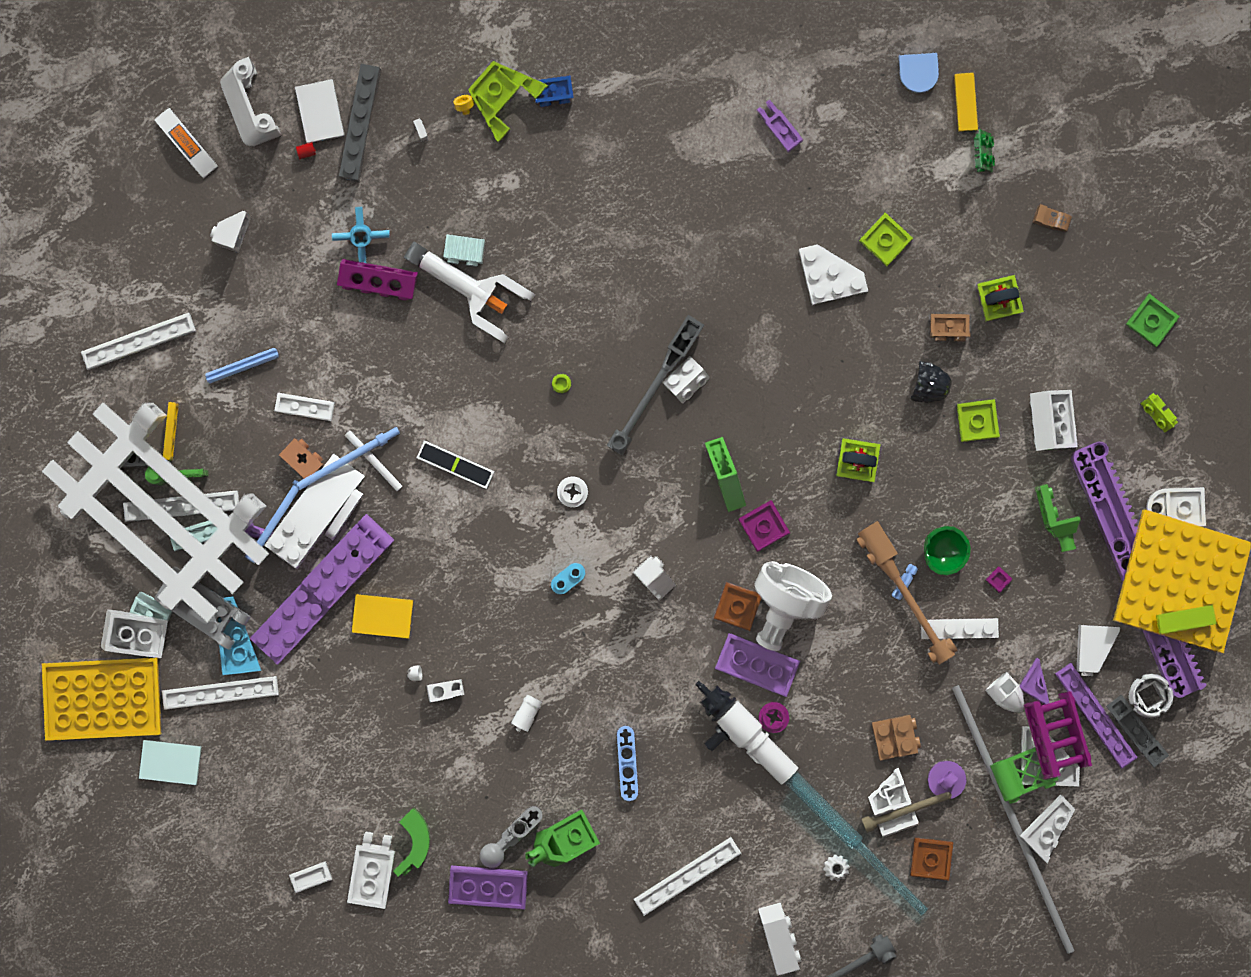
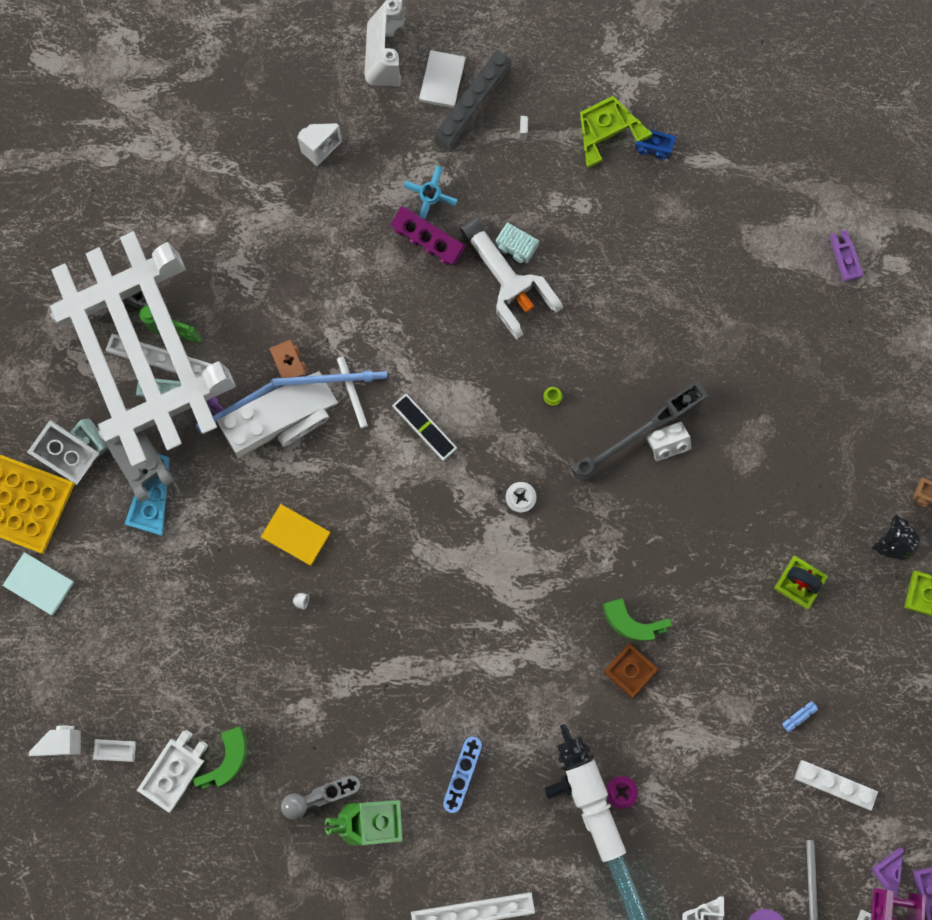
camera: 20 degrees right, 10 degrees down
(138, 341) = (194, 202): white tile -> none
(170, 432) = (184, 288): yellow tile -> none
(186, 143) = (315, 58): white slope -> none
(220, 692) = (115, 540): white tile -> none
(241, 365) = (274, 260): light blue axle -> none
(260, 892) = (58, 742): none -> white slope
(304, 407) = (312, 319): white tile -> none
(305, 150) = (415, 105): red hinge -> none
(322, 589) = (252, 486): medium lavender hinge -> none
(445, 690) = (321, 628): white leg -> none
(463, 103) = (570, 122): yellow tile -> none
(487, 887) = (276, 836): medium lavender tile -> none
(525, 716) = (387, 684): white piece -> none
(568, 579) = (482, 575): medium azure plate -> none
(655, 577) = (564, 606): white wedge -> none
(721, 570) = (625, 626): none -> bright green arch
(725, 474) = (671, 542): bright green arch -> none
(757, 665) = (626, 734): medium lavender tile -> none
(764, 526) = (686, 605): magenta tile -> none
(790, 595) = (686, 681): white piece -> none
(829, 275) = (839, 405): white plate -> none
(881, 553) = (791, 678): medium nougat bar -> none
(886, 239) = (904, 394): lime tile -> none
(896, 737) = (733, 865): medium nougat plate -> none
(946, 550) = (854, 702): green cylinder -> none
(998, 579) = (892, 754): magenta tile -> none
(1007, 693) = (860, 869): white helmet -> none

